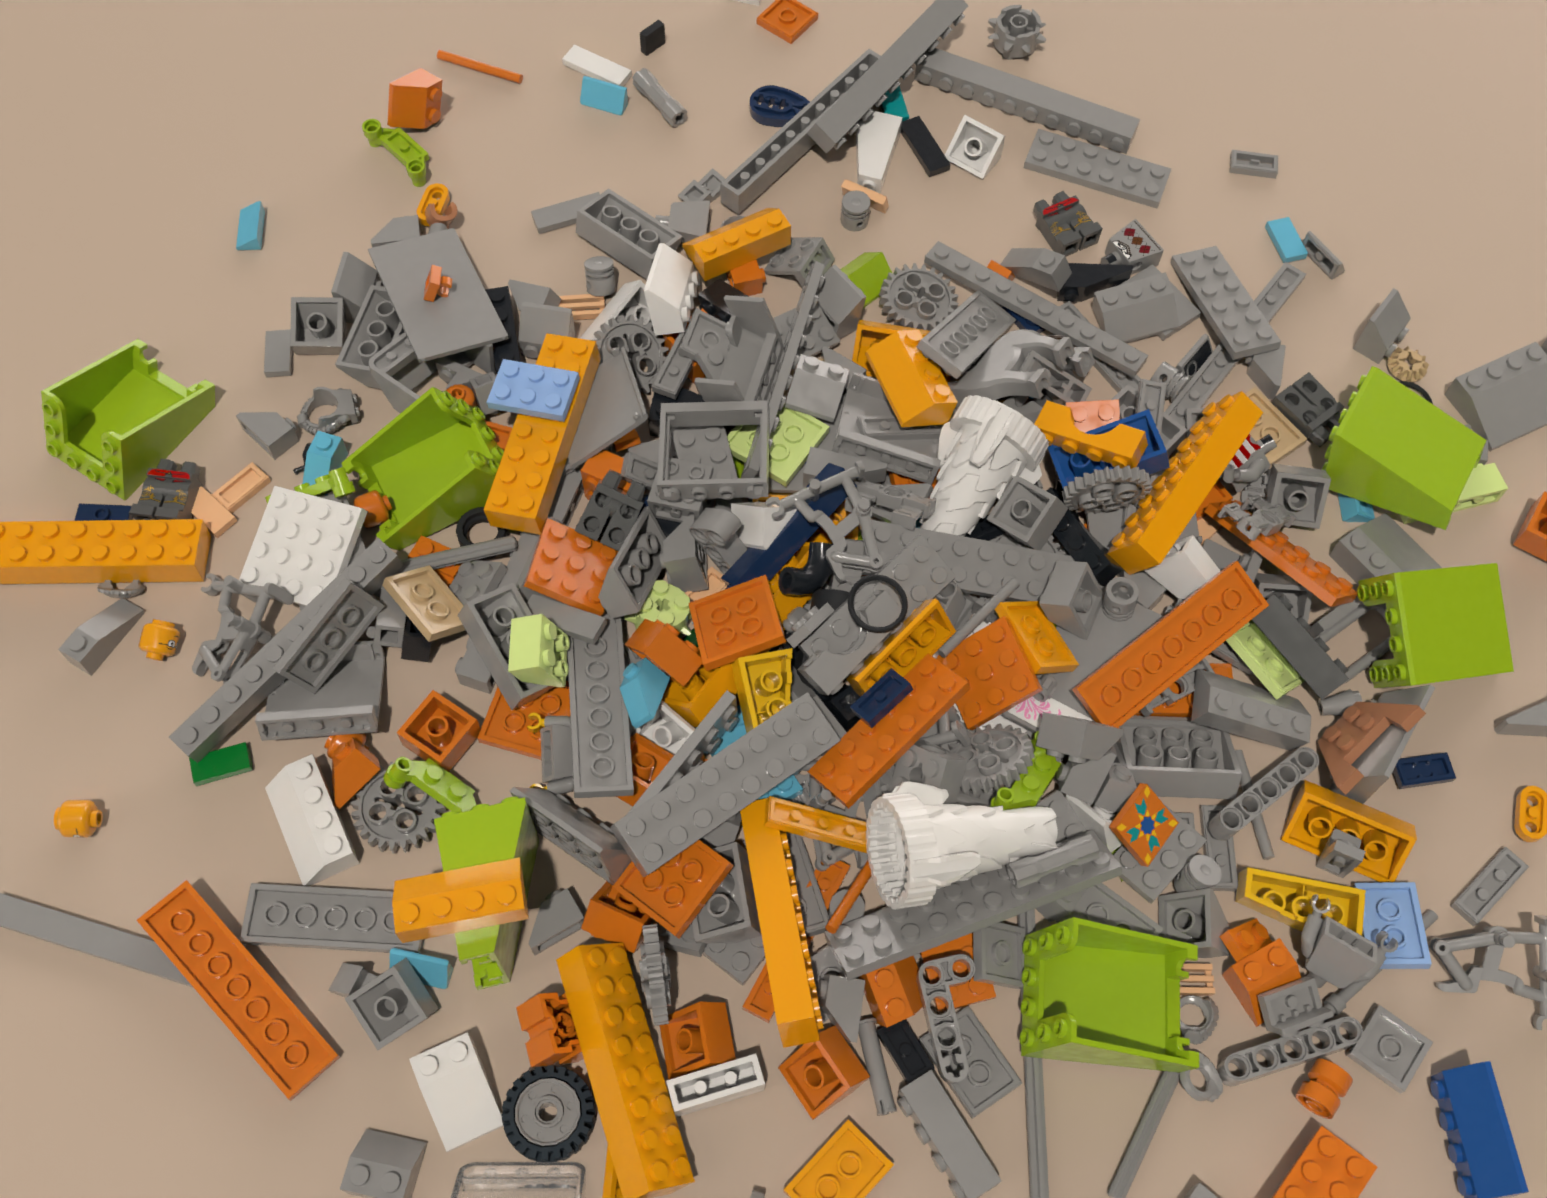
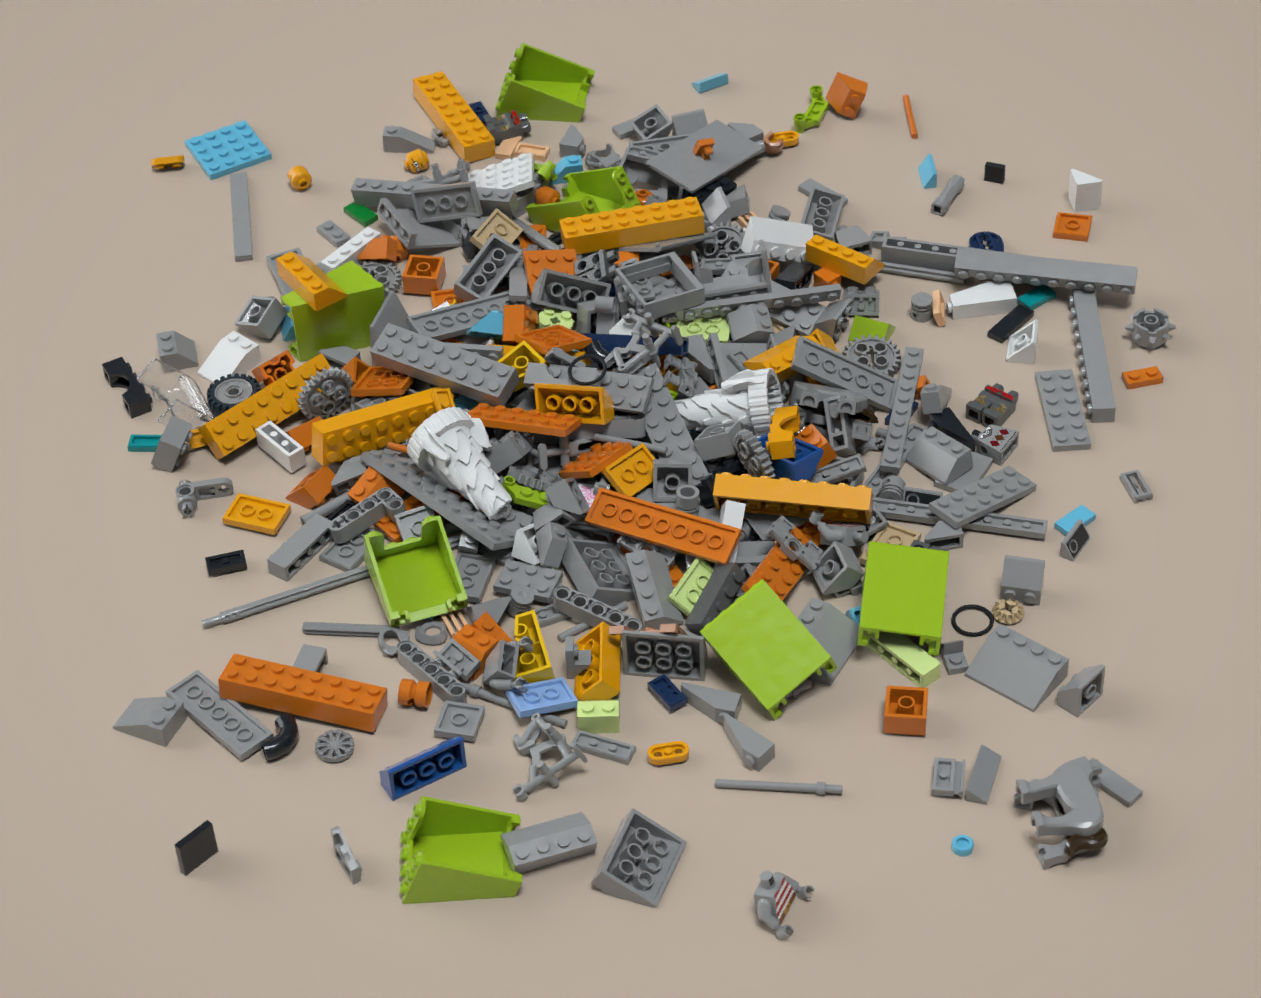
camera: 70 degrees right, 20 degrees down
(238, 990) = (239, 265): orange plate -> none
(241, 821) = (333, 233): none -> light grey plate
(433, 781) = (393, 276): lime plate -> none
(533, 390) = (648, 202): light blue plate -> none
(538, 651) = (485, 275): yellowish green slope -> none
(596, 66) = (952, 161): white tile -> none
(785, 181) = (922, 272): none -> light grey axle
(881, 698) = (539, 404): dark blue plate -> none
(1033, 868) = (487, 517): light grey axle -> none
(1080, 77) = (1142, 377): none -> orange plate
(1143, 824) = (532, 553): tile -> none
(1438, 866) = (599, 716): none -> yellowish green slope
(1467, 723) = (712, 702): none -> light grey slope

